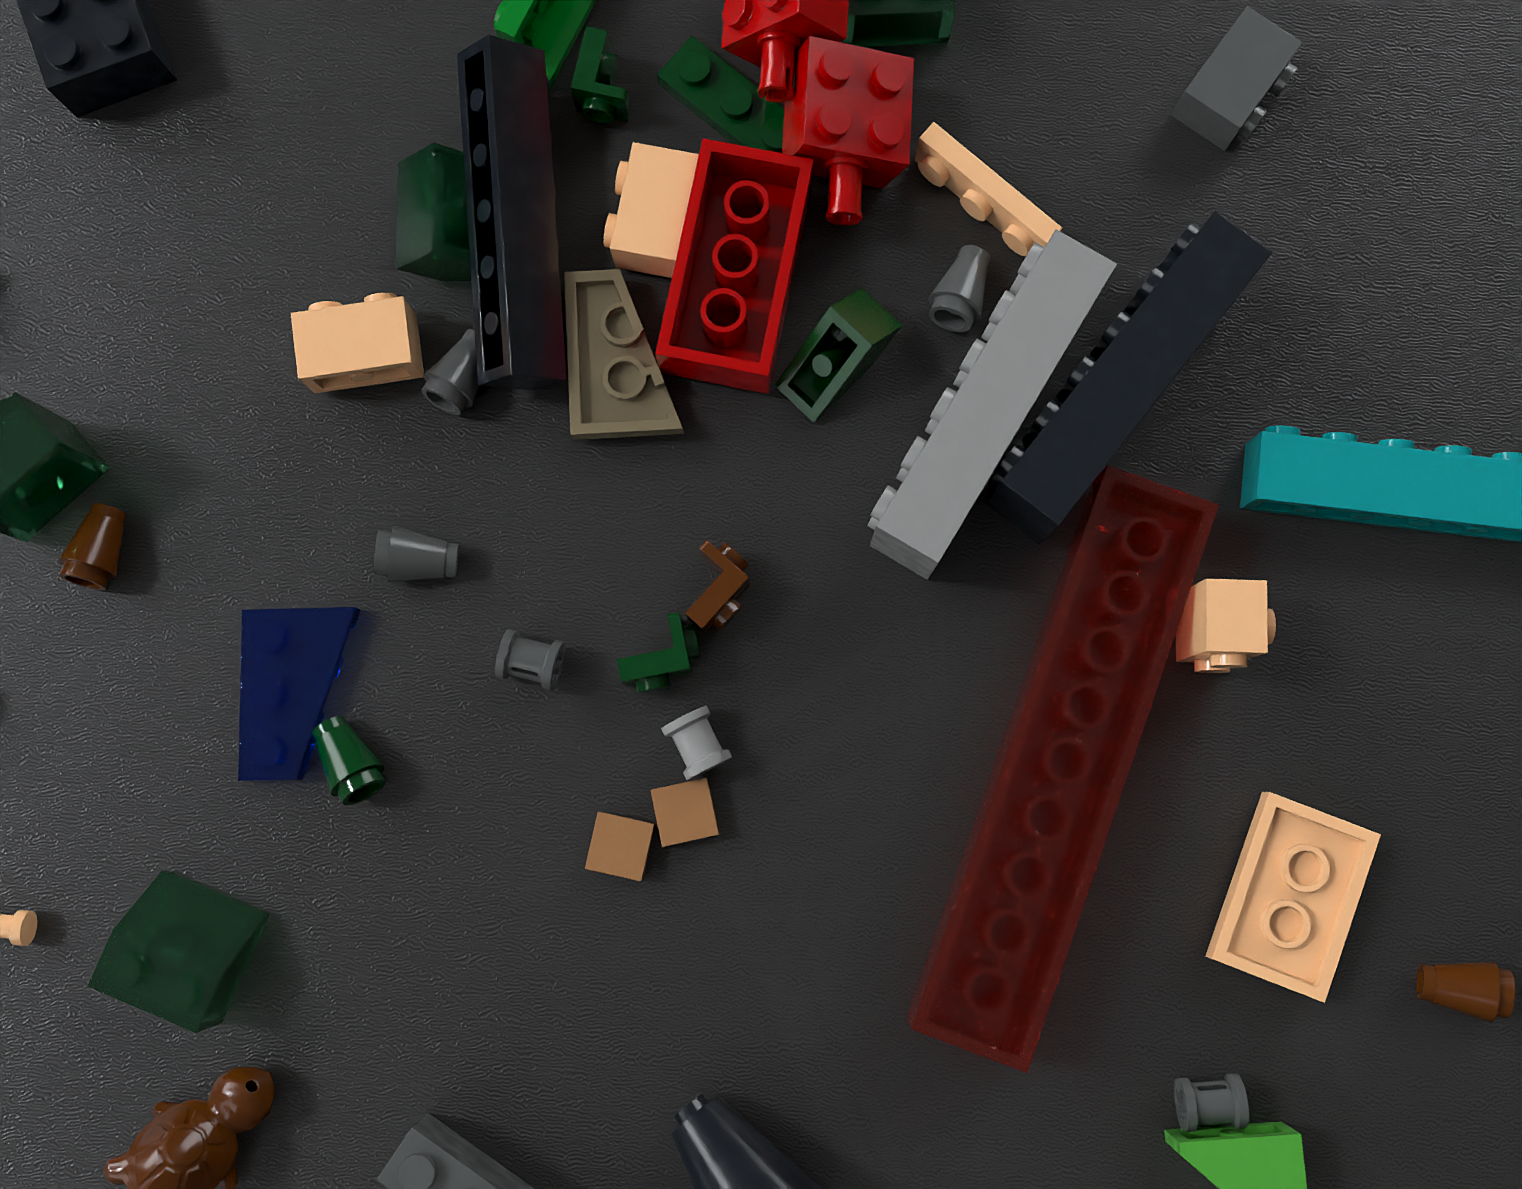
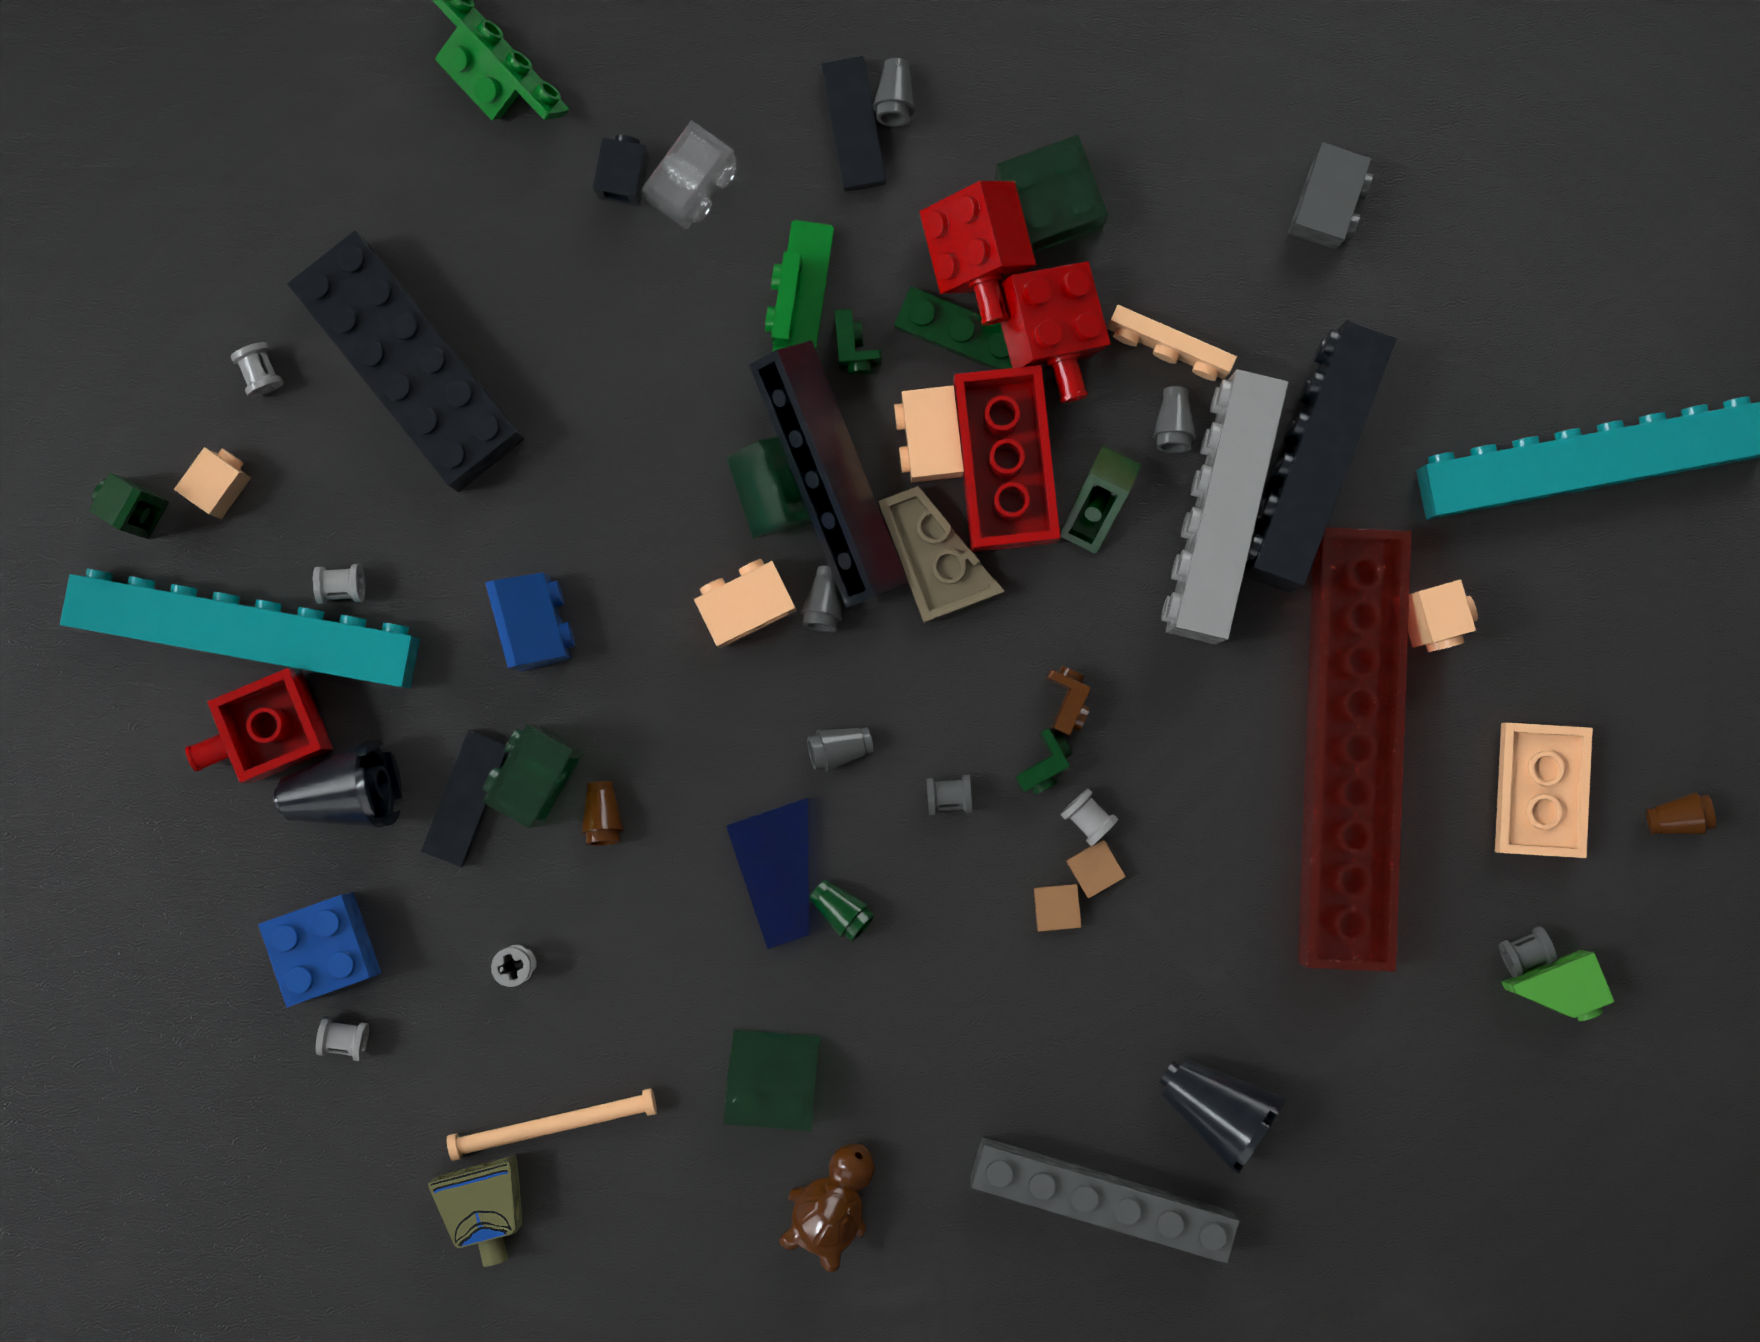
camera: 20 degrees left, 5 degrees up
(83, 281) = (530, 621): none -> blue slope

